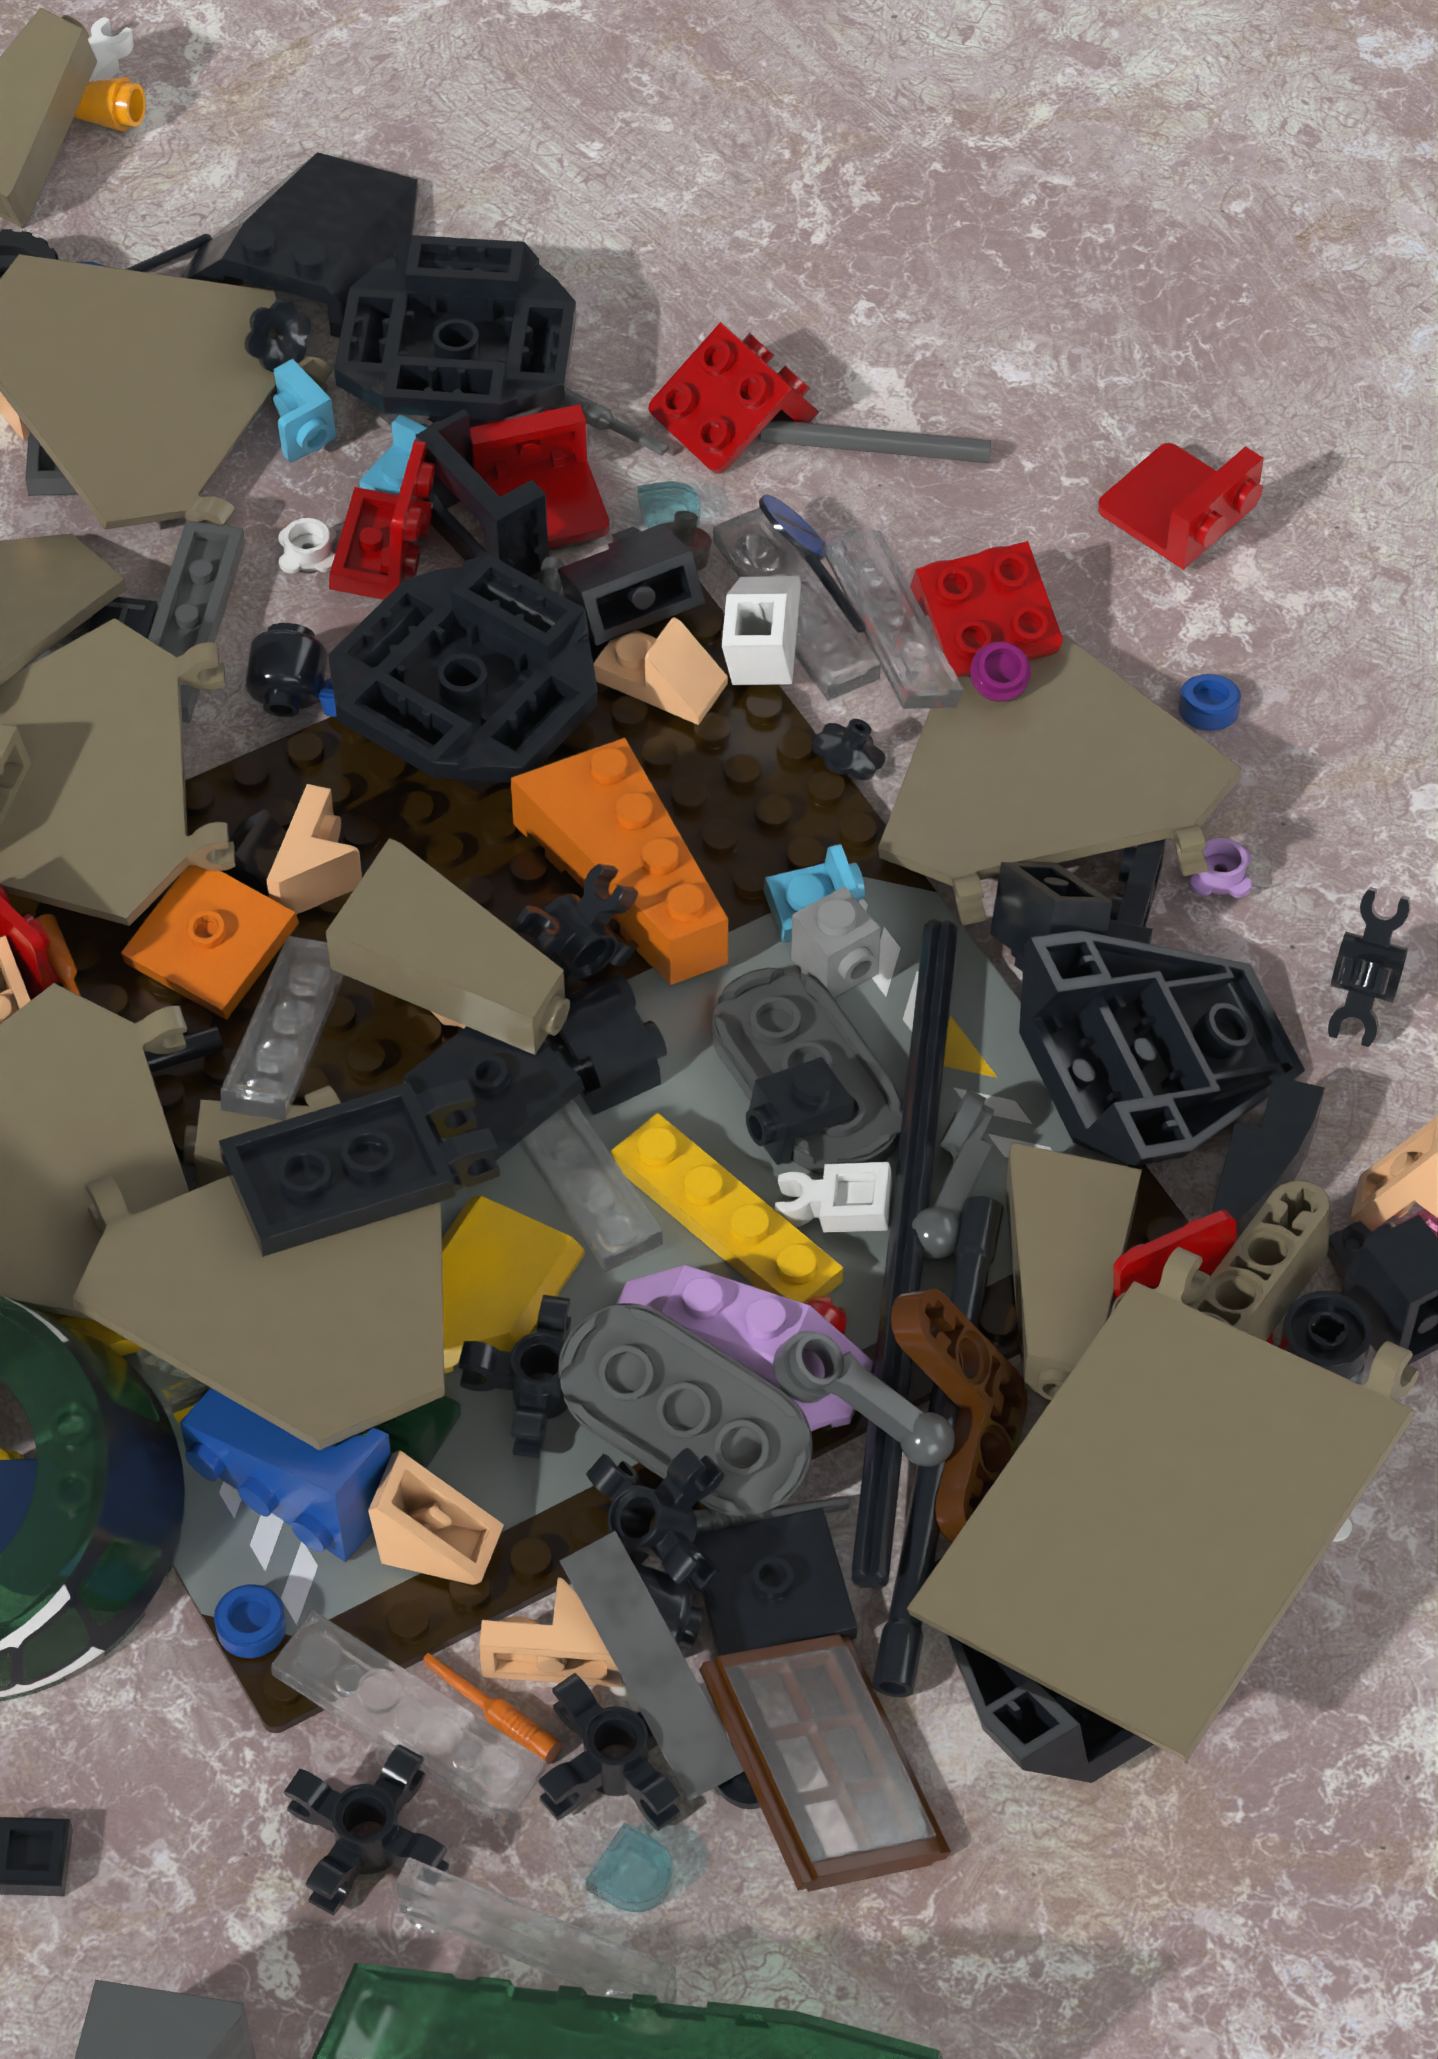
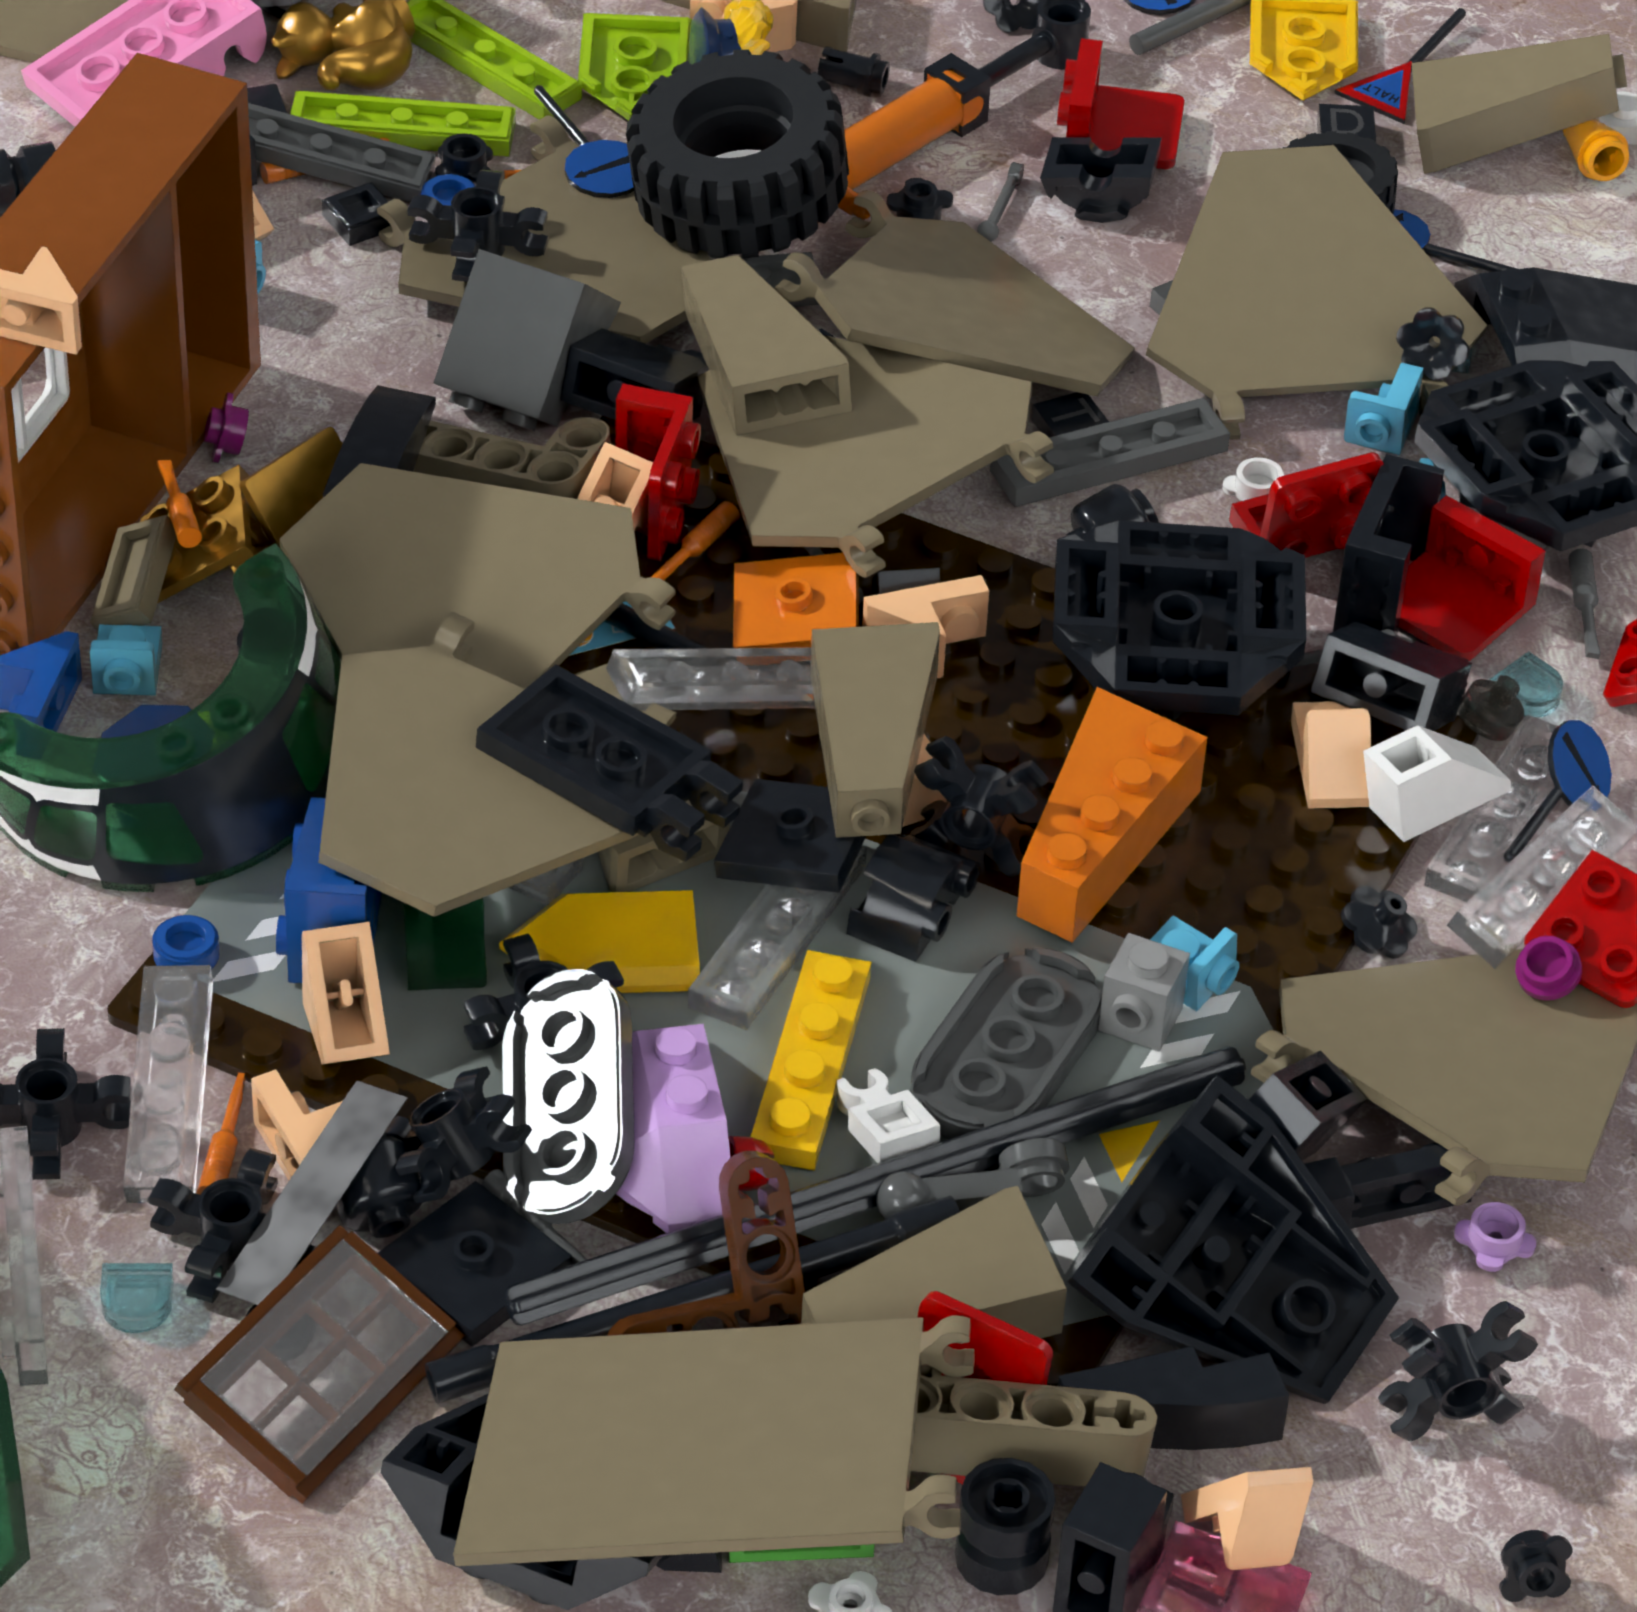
camera: 55 degrees right, 10 degrees down
(795, 1105) = (950, 1040): black bracket -> none
(923, 1436) = (676, 1273): dark grey piece -> none

